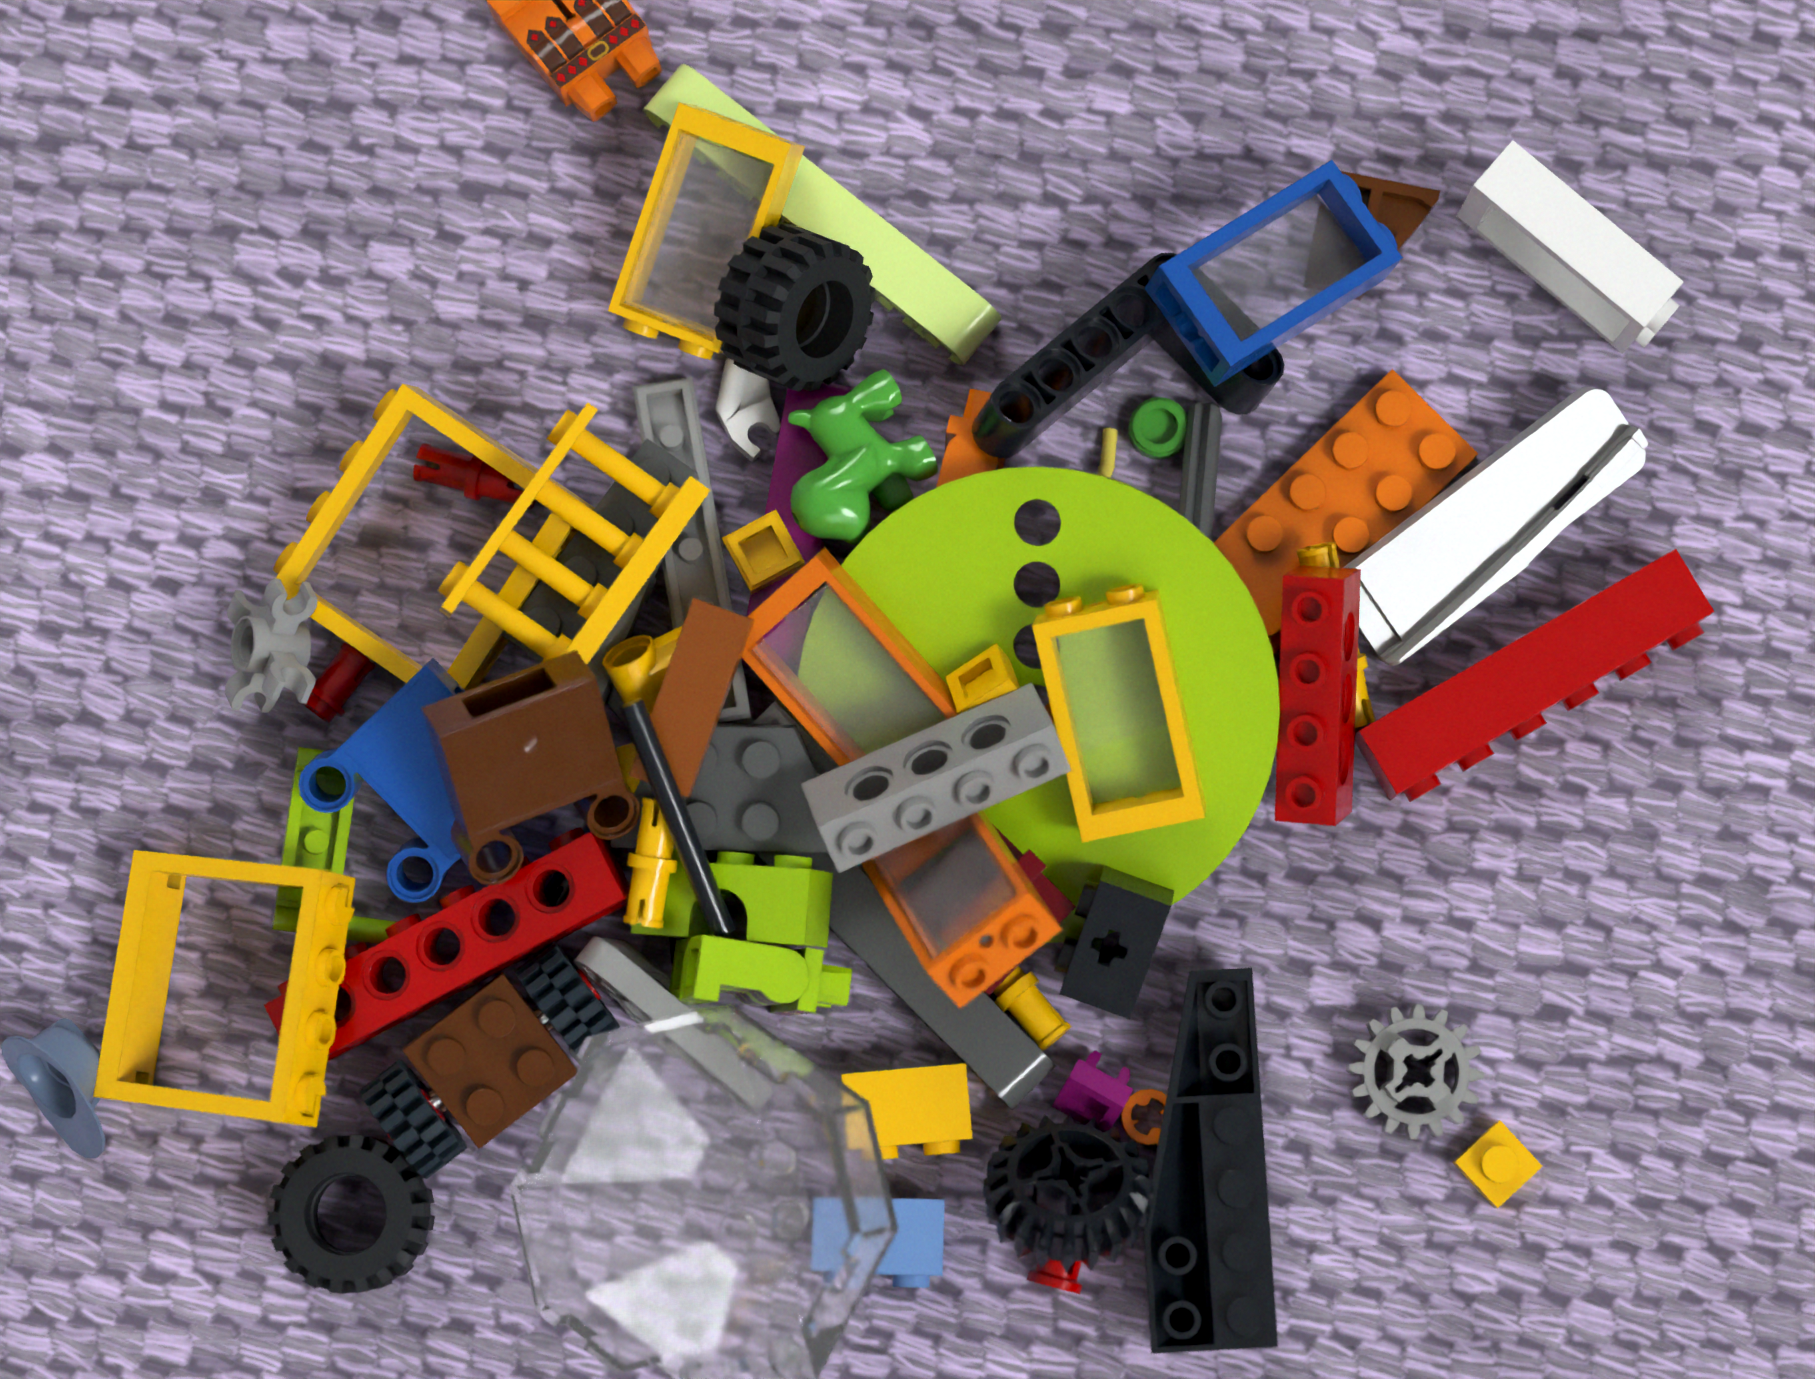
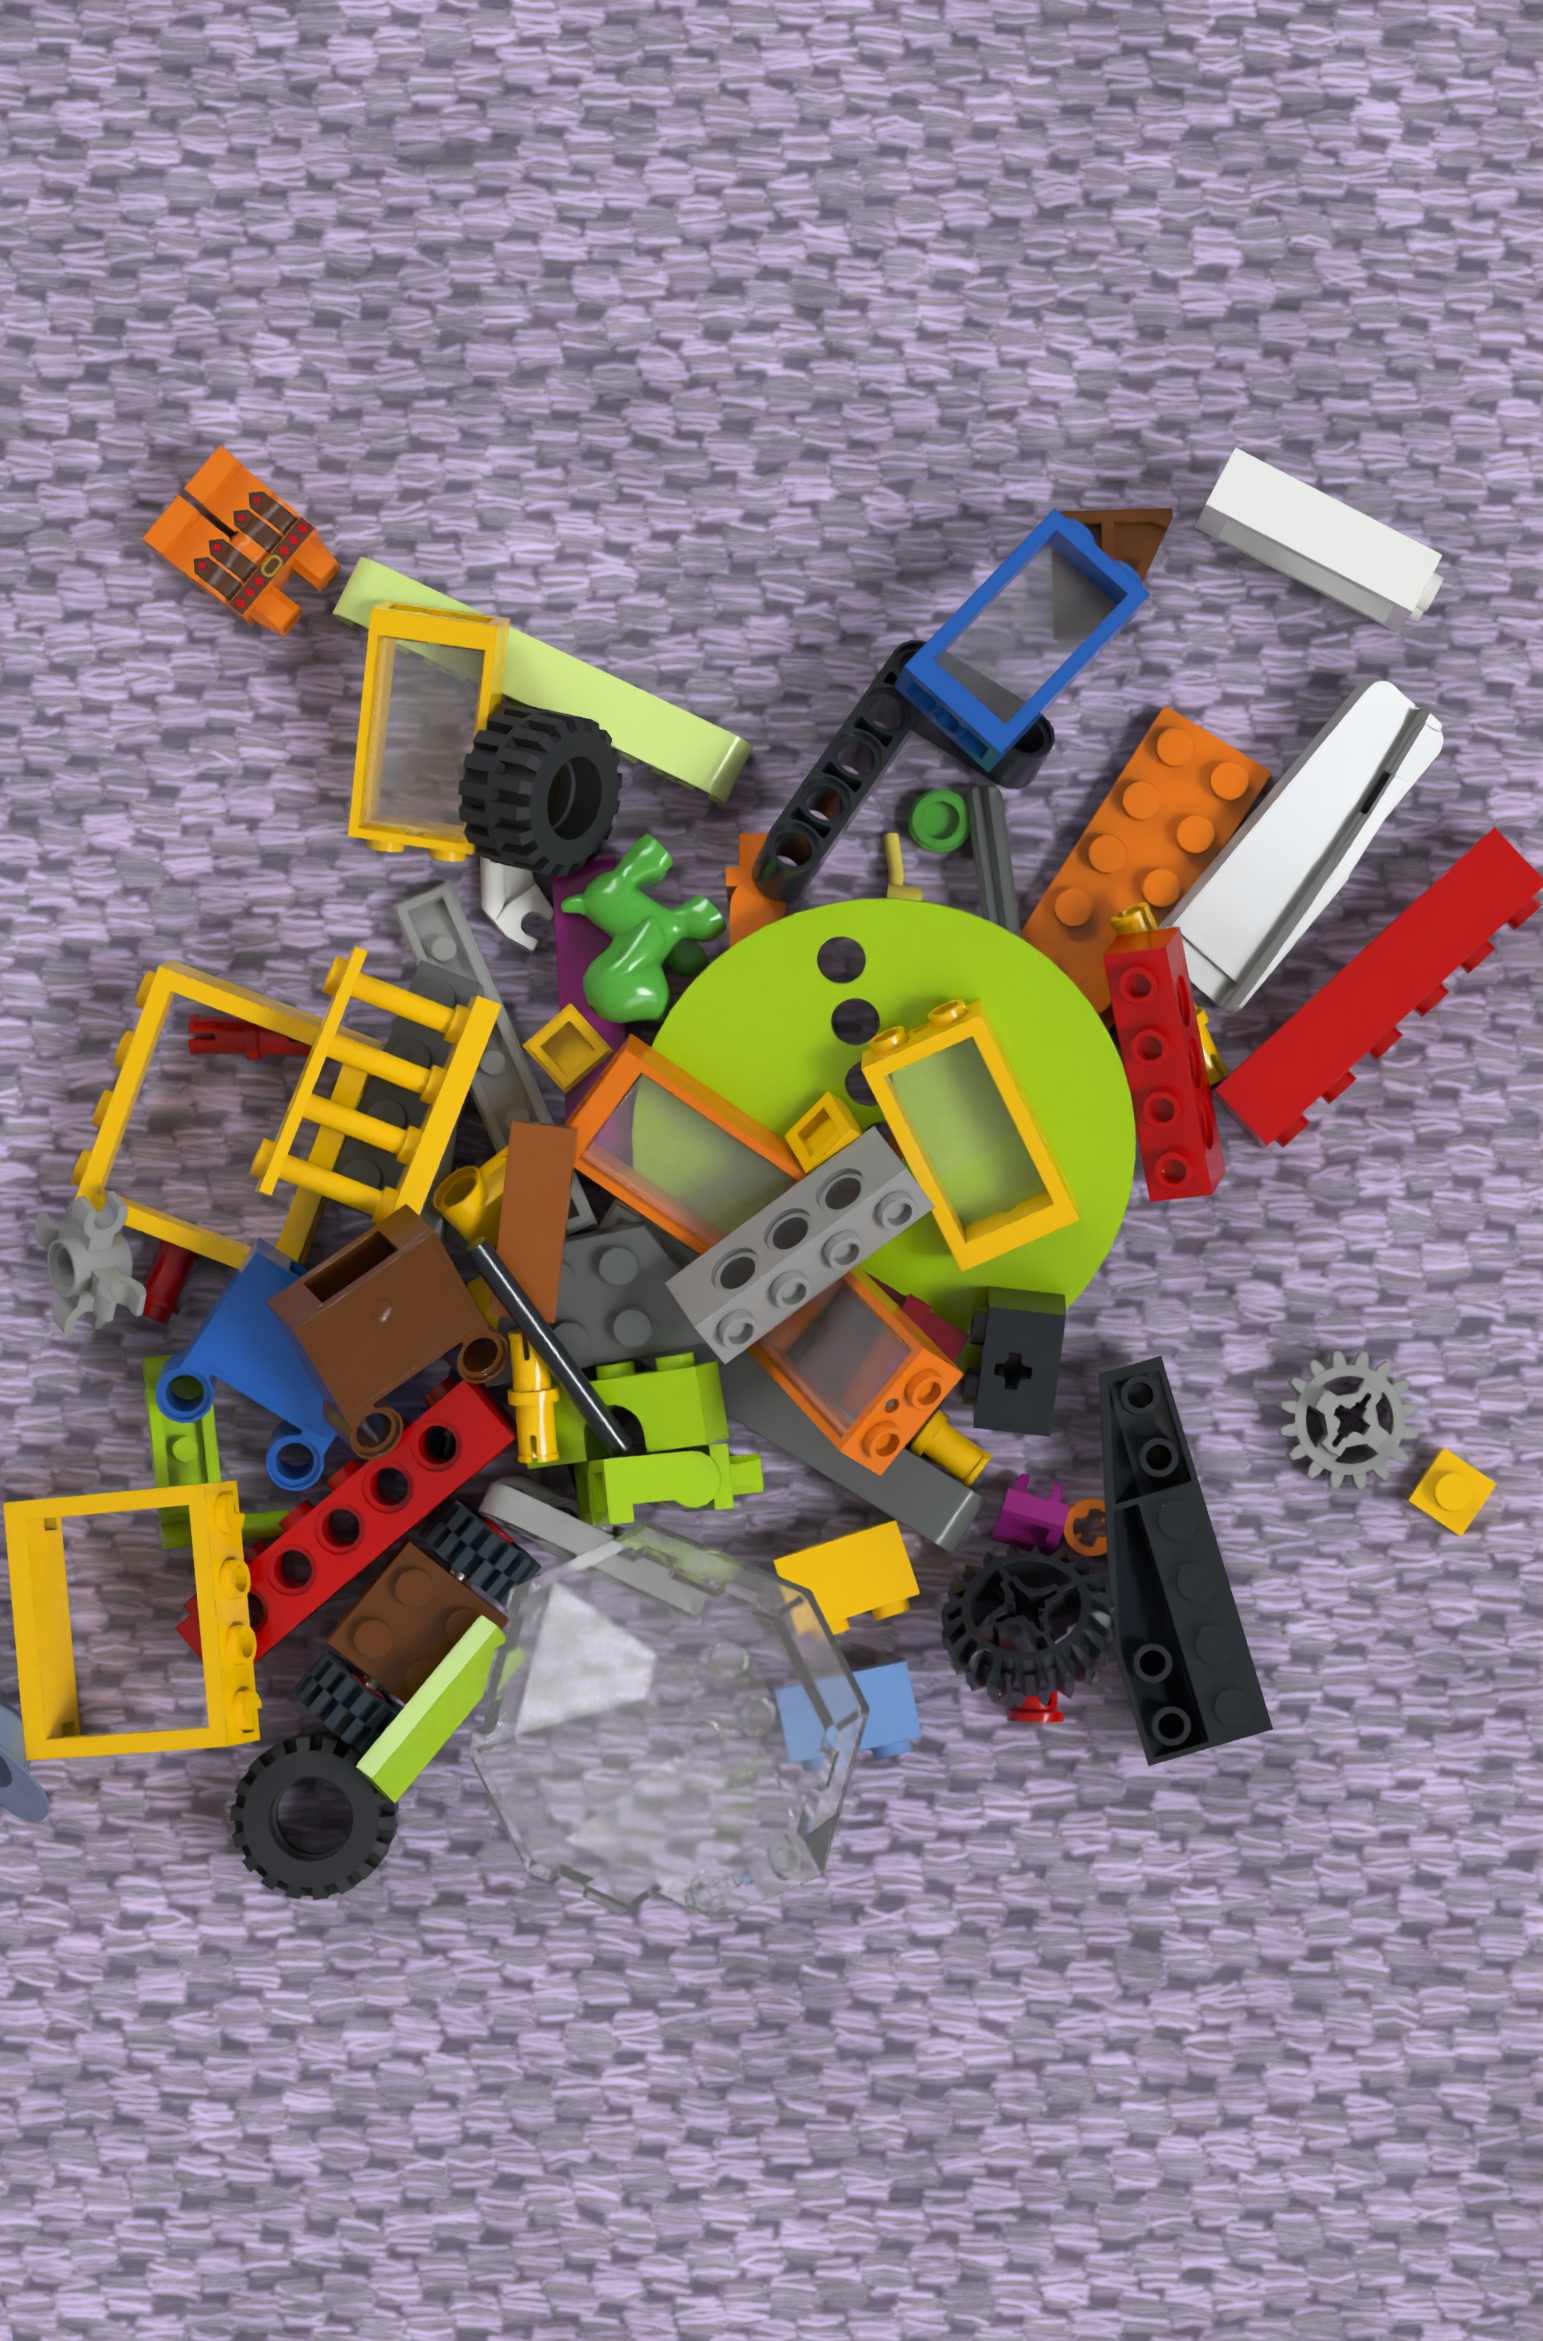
camera: 10 degrees left, 5 degrees up
(484, 1140) = (432, 1712): none -> lime tile

